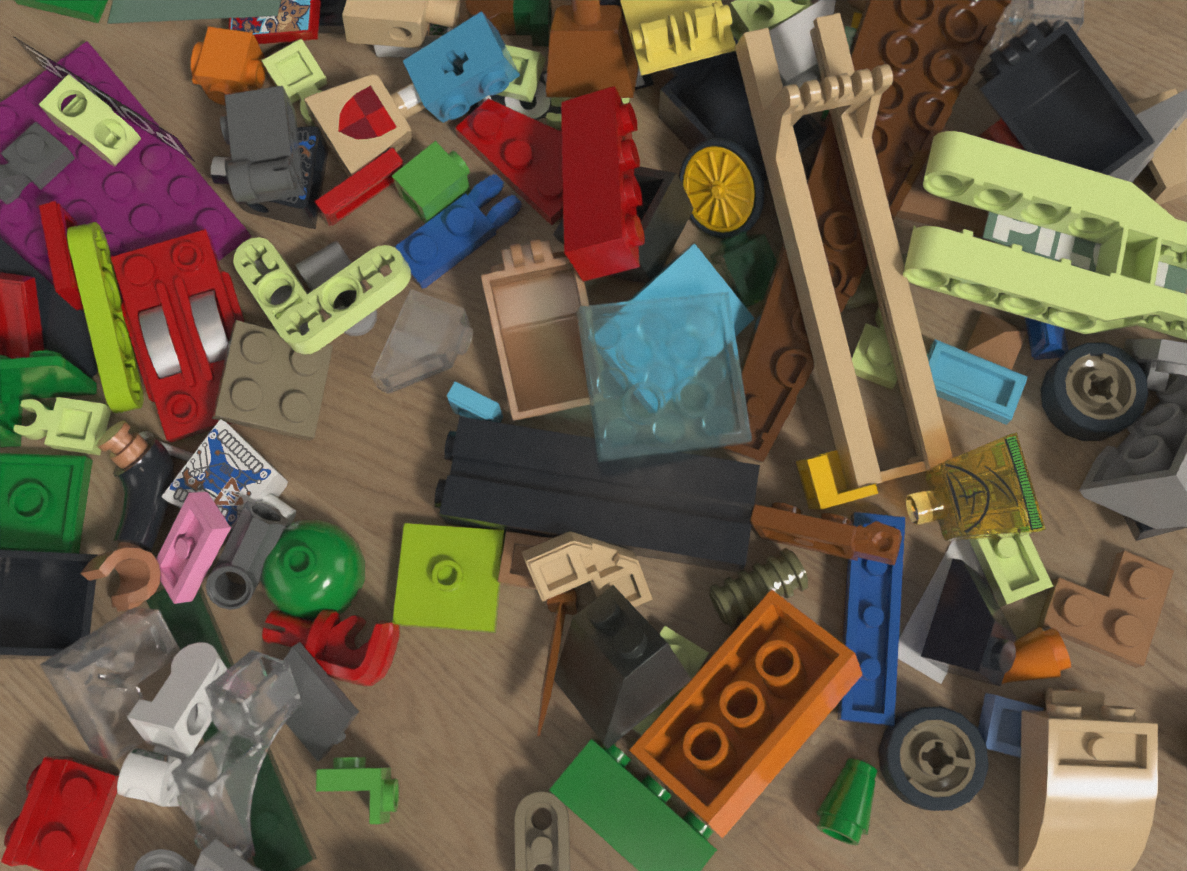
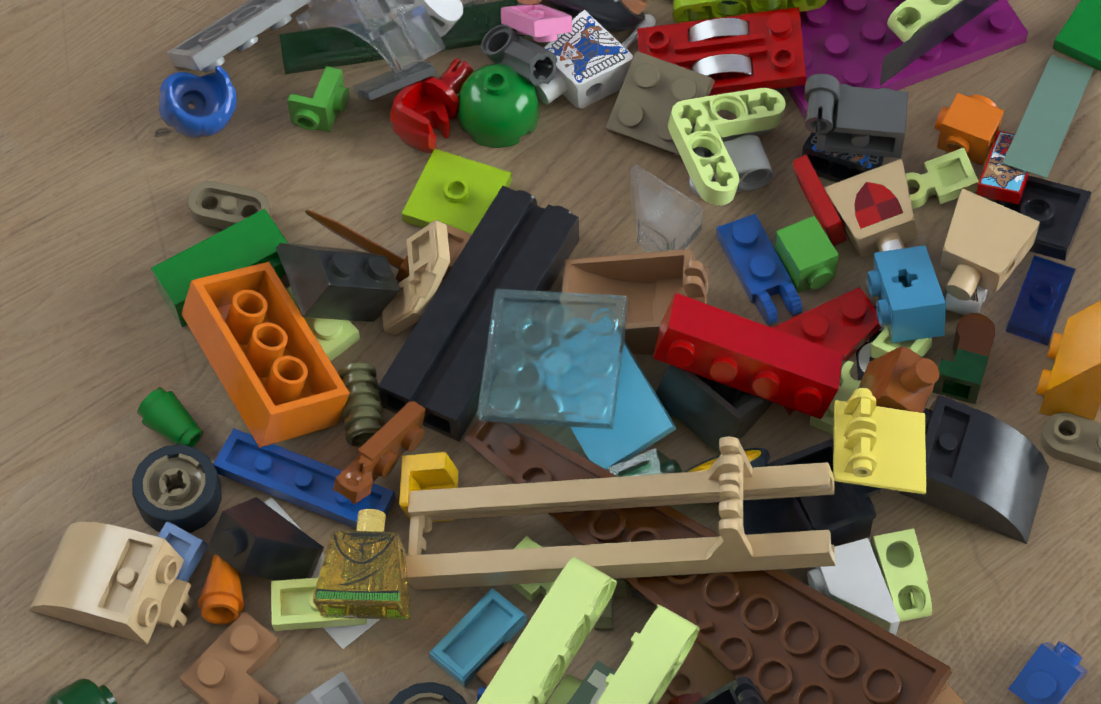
camera: 105 degrees right, 15 degrees down
(472, 404) = (590, 237): medium azure tile -> none

